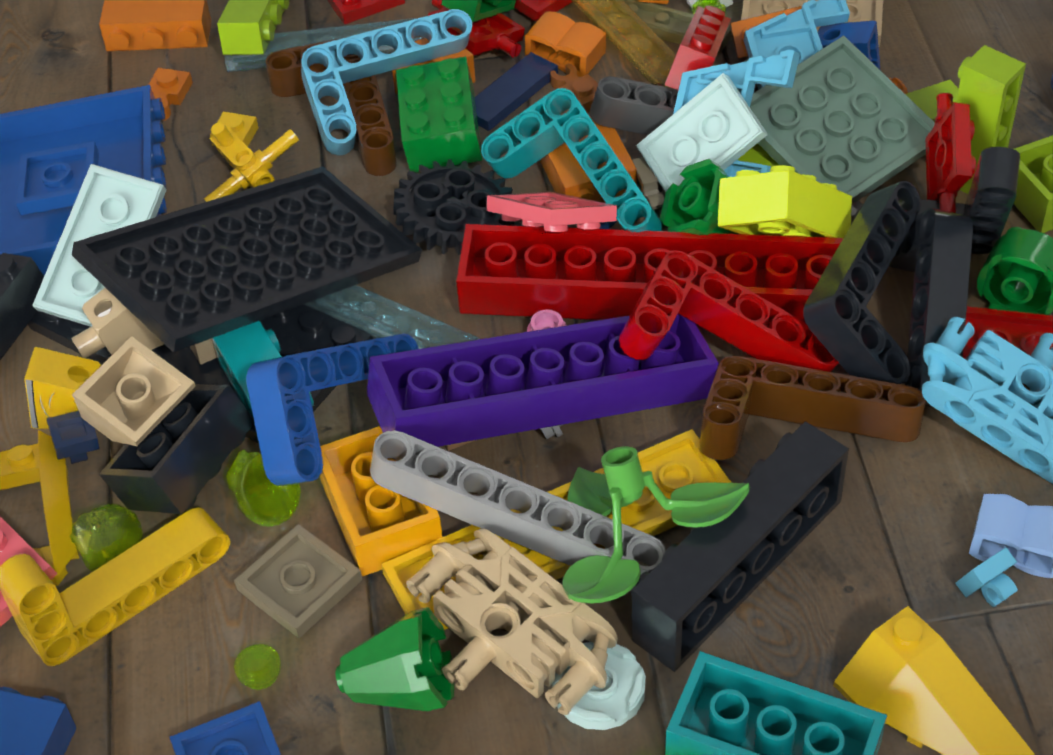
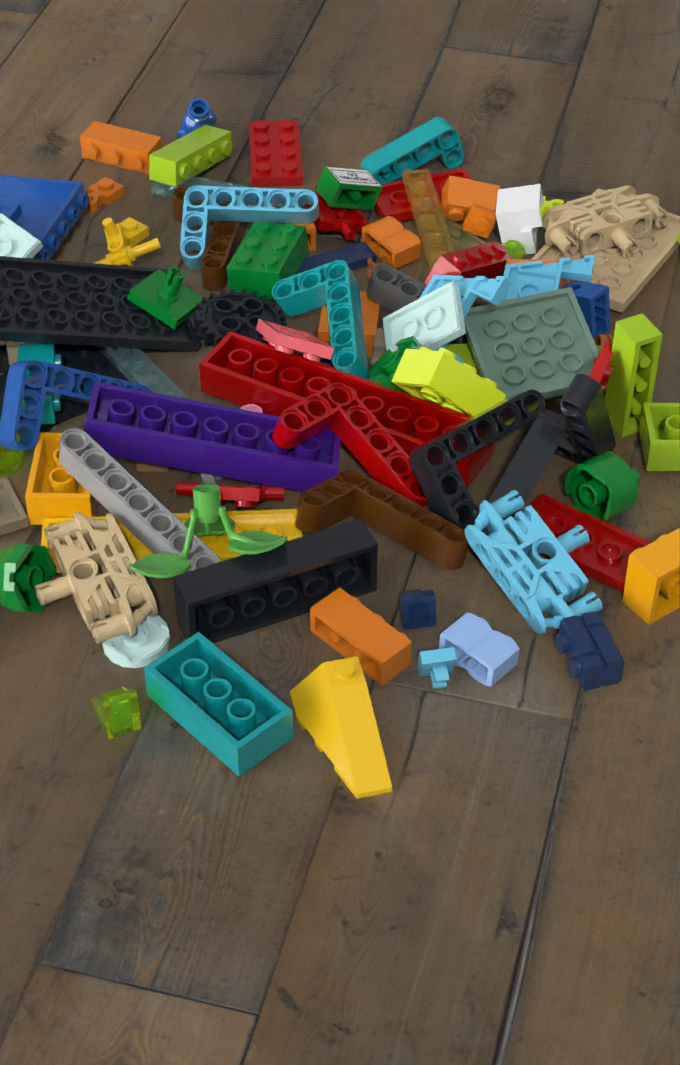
camera: 20 degrees right, 5 degrees down
(352, 204) = (166, 296): none -> green tile
(589, 443) = (243, 495): none -> red plate
(874, 571) = (359, 632): none -> orange brick
(916, 509) = (418, 609): none -> dark blue tile

